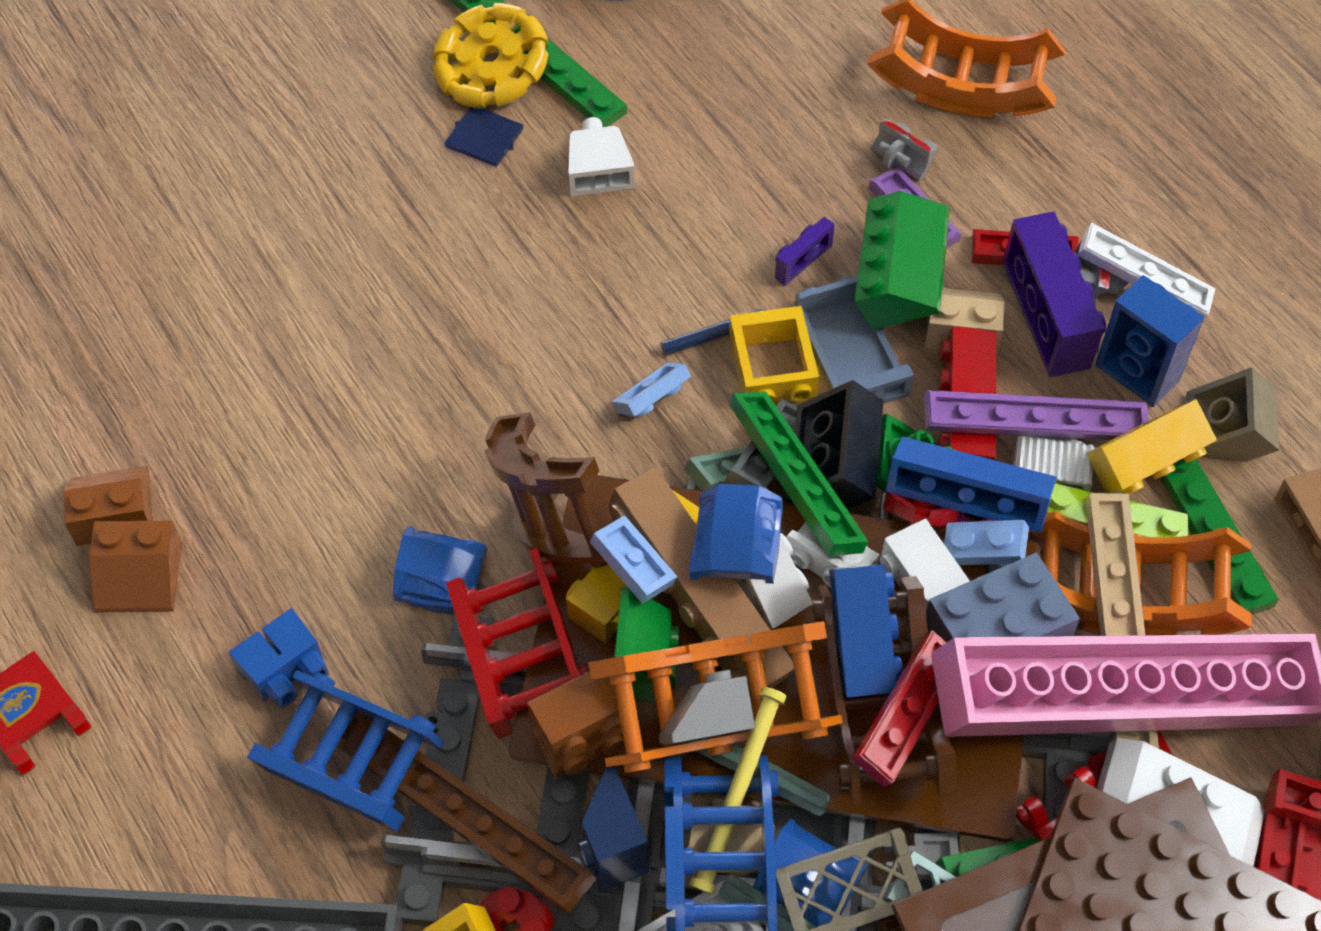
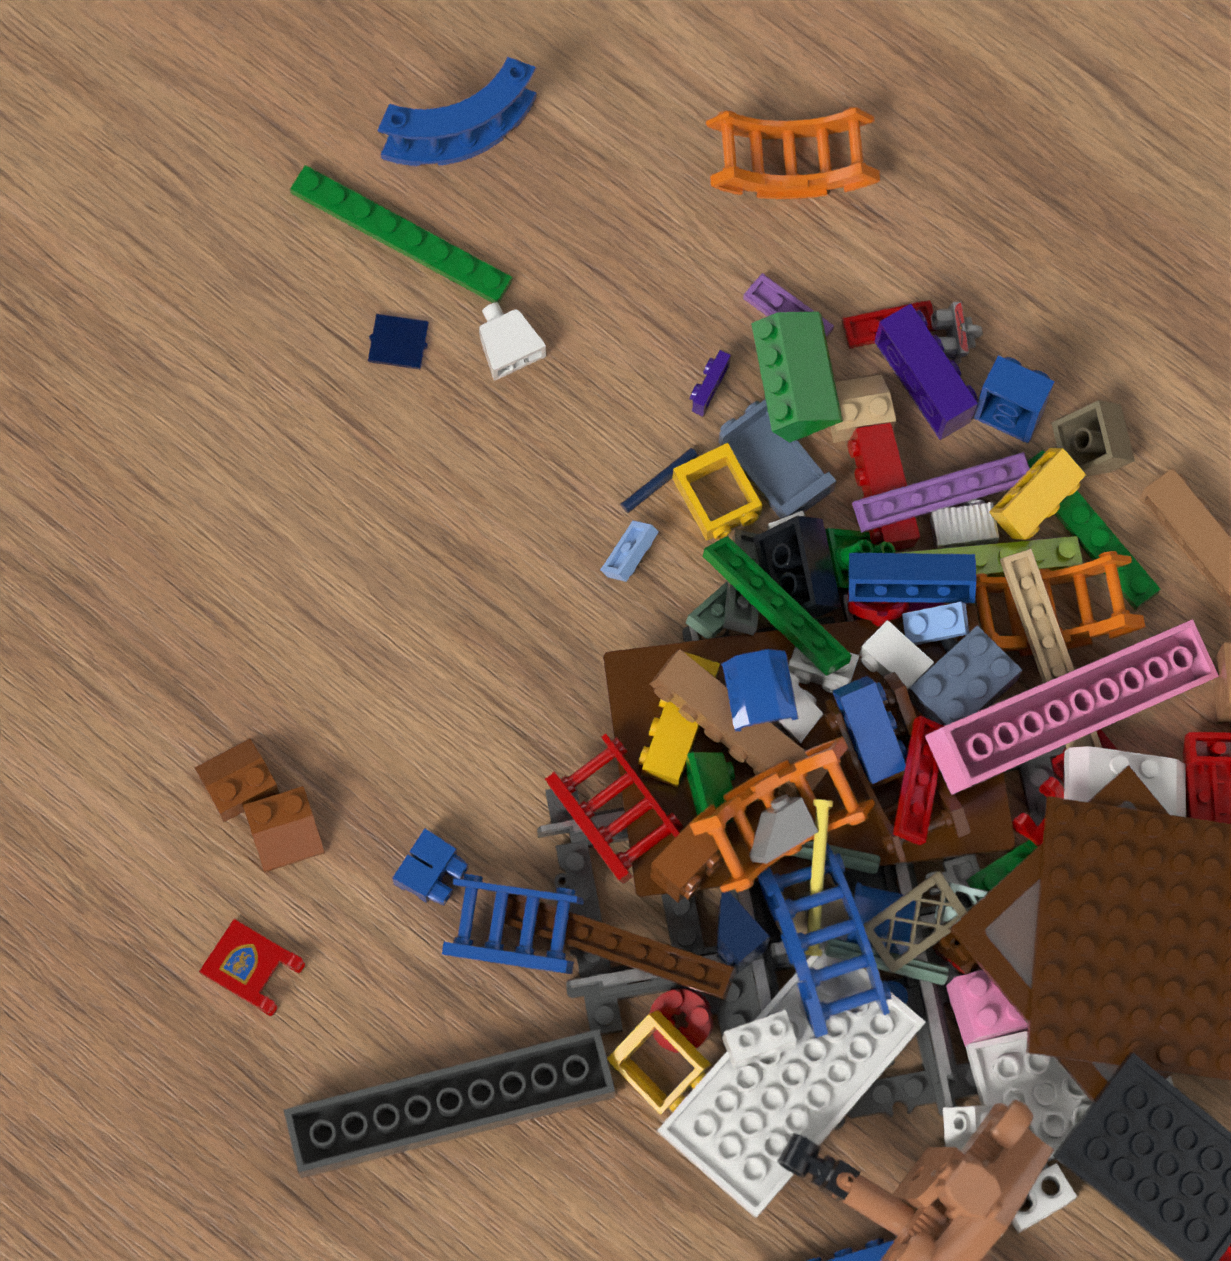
camera: 20 degrees left, 15 degrees up
(430, 561) = (520, 759): blue slope -> none
(486, 39) = (358, 260): yellow plate -> none
(536, 486) = (592, 692): reddish brown fence -> none
(633, 559) = (689, 729): light blue plate -> none
(903, 149) = (761, 256): light grey hips -> none
(1132, 262) = (994, 325): white tile -> none

